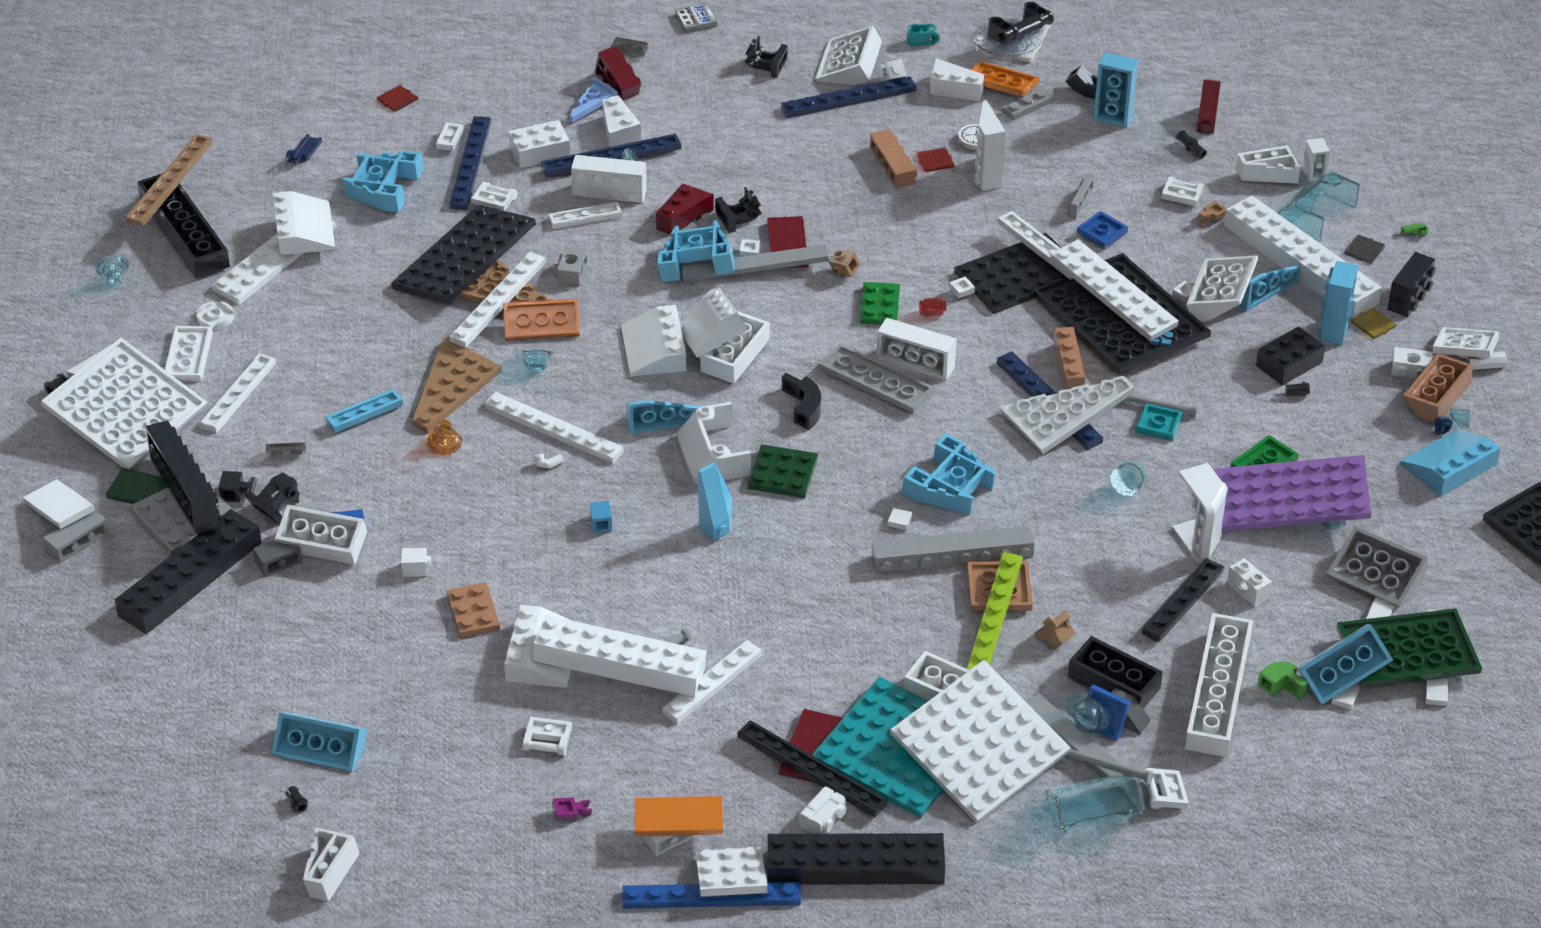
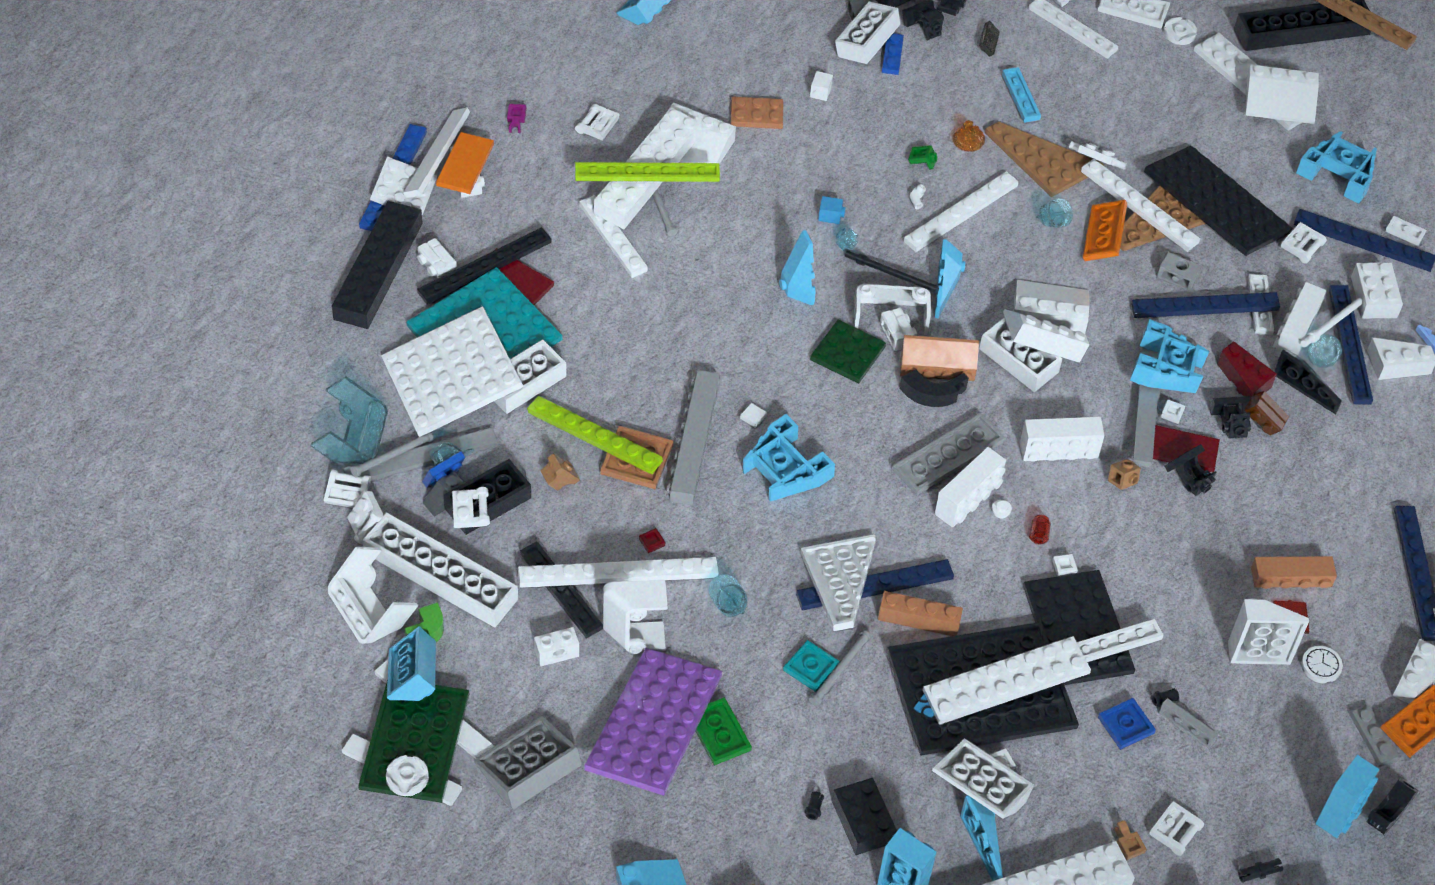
camera: 105 degrees right, 10 degrees up
(304, 150) = (1406, 128): dark blue arm -> none
(438, 337) = (1105, 155): none -> white plate
(490, 465) = (923, 154): none -> green bracket
(607, 246) = (1205, 305): none -> dark blue plate
(633, 157) = (1315, 335): none -> white bar
(641, 490) = (846, 239): none -> clear light blue gear
(647, 635) = (647, 172): none -> lime plate
(659, 480) = (864, 260): none -> black bar
(667, 178) = (1303, 378): none -> black wedge
(669, 850) = (436, 153): none -> white tile
(730, 186) = (1267, 413): none -> reddish brown brick
(742, 436) = (895, 326): none -> white brick
(771, 399) = (939, 357): none -> slope
(818, 224) = (1189, 459): none -> black tile
(828, 302) = (1061, 438): none -> white brick
(879, 302) = (1062, 493): green plate -> none
(1065, 214) = (1159, 697): none -> black pin
(1087, 555) = (652, 540): none -> dark red tile
(1144, 563) = (617, 571): none -> white plate
(1150, 672) = (463, 508): none -> white plate
(1190, 758) = (364, 516): none -> white plate
(1296, 733) = (358, 603): none -> white windscreen
(1452, 634) = (407, 775): none -> white tile

